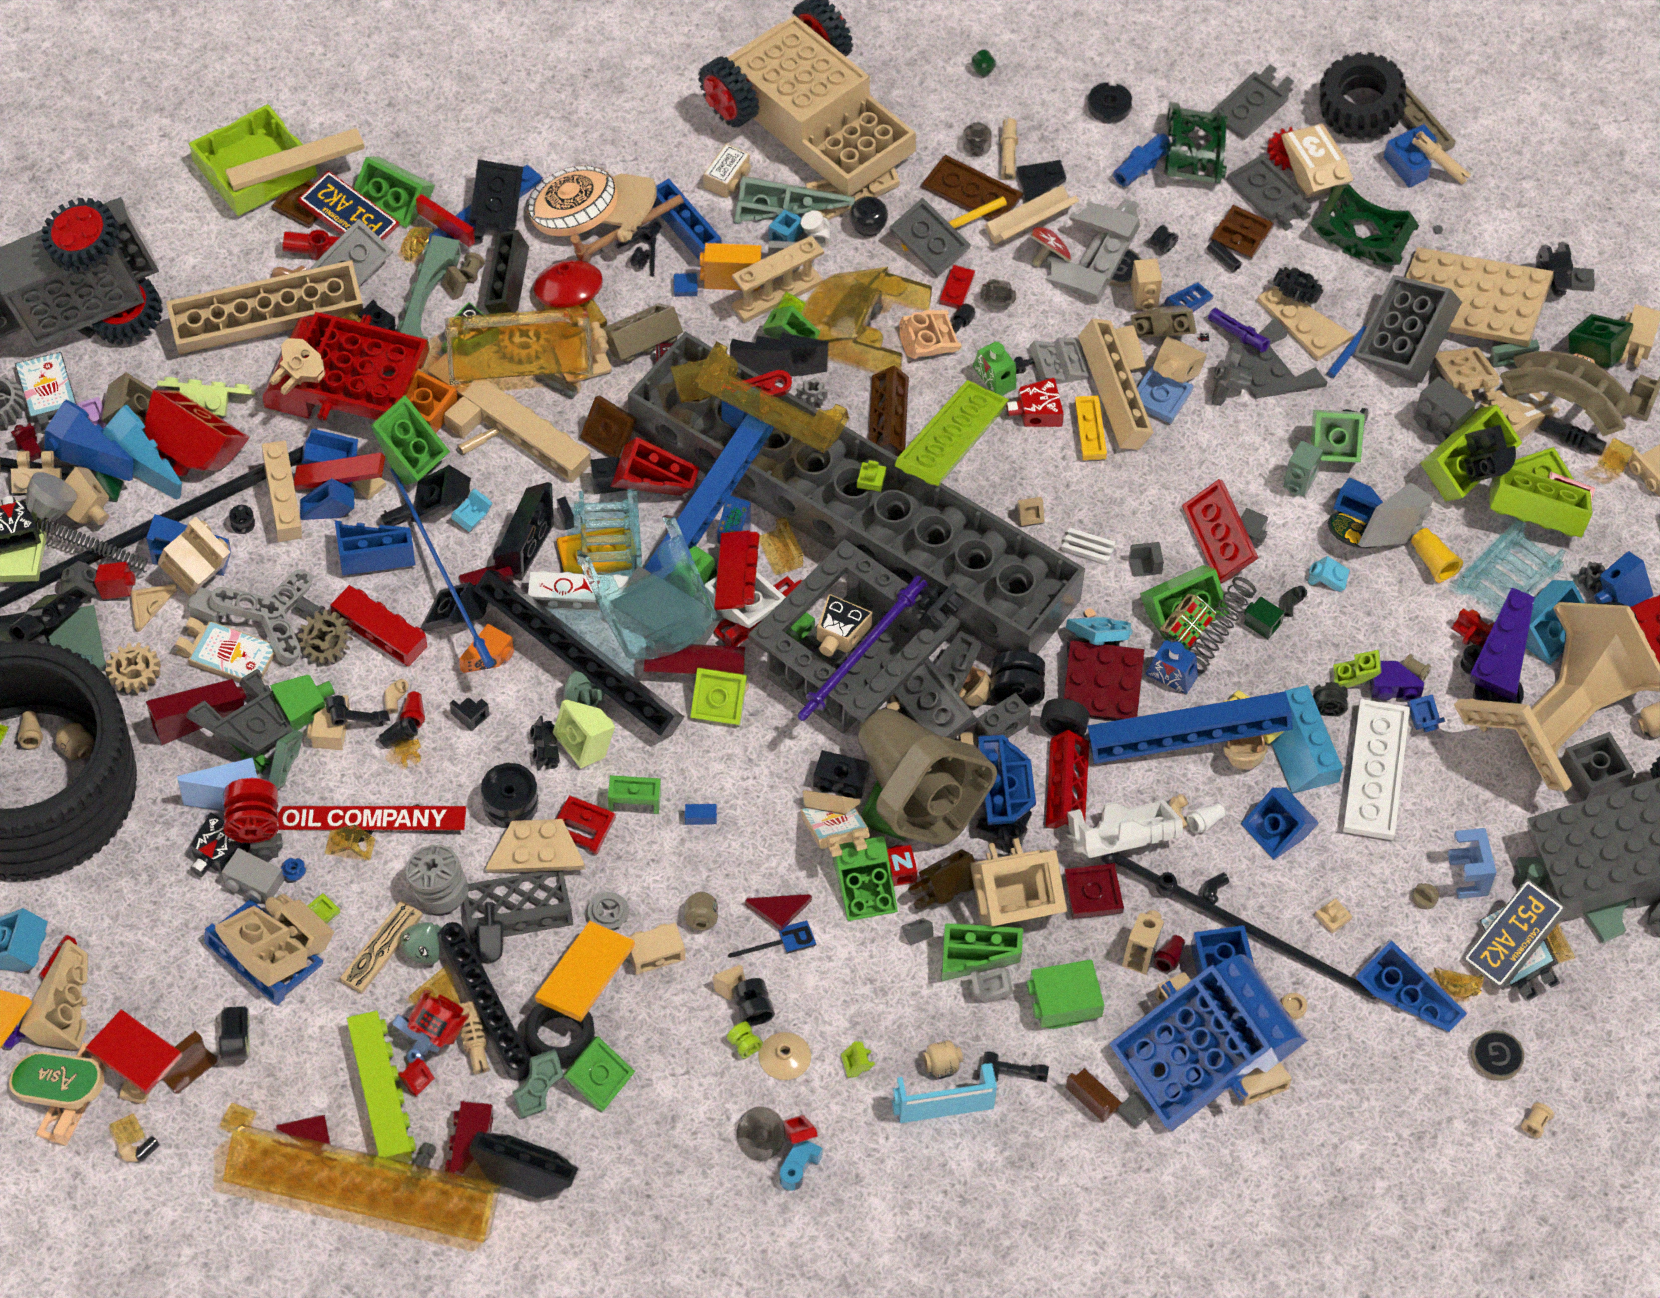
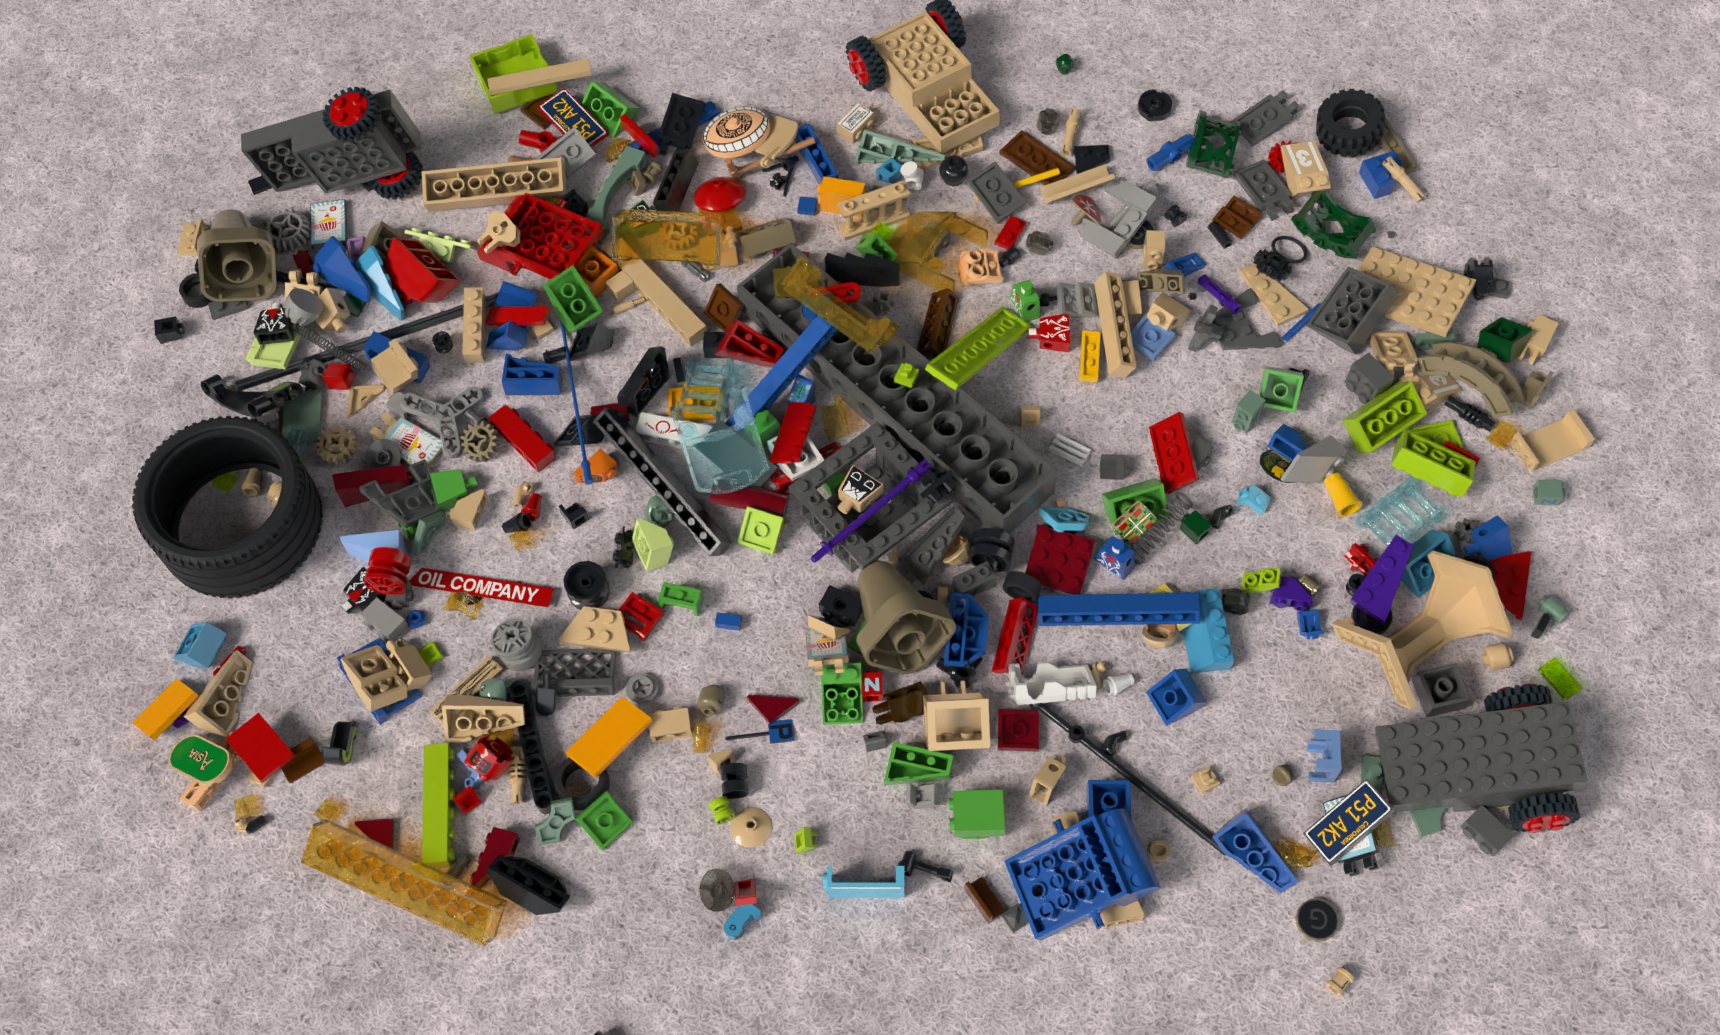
camera: 15 degrees right, 5 degrees up
(195, 663) = (378, 450): none -> dark grey dish
(340, 714) = (474, 503): black brick -> none
(404, 973) = (472, 716): none -> tan wedge
(472, 510) = (610, 359): medium azure bracket -> none
(697, 957) = (700, 736): none -> clear yellow cone
(934, 702) = (923, 561): dark grey tile -> none
(942, 1058) = (871, 850): tan head -> none
(1168, 956) = (1066, 794): dark red cone -> none
(1318, 251) = (1294, 240): none -> black tyre
(1376, 769) = (1262, 664): white plate -> none
(1488, 453) = (1397, 421): black brick -> none

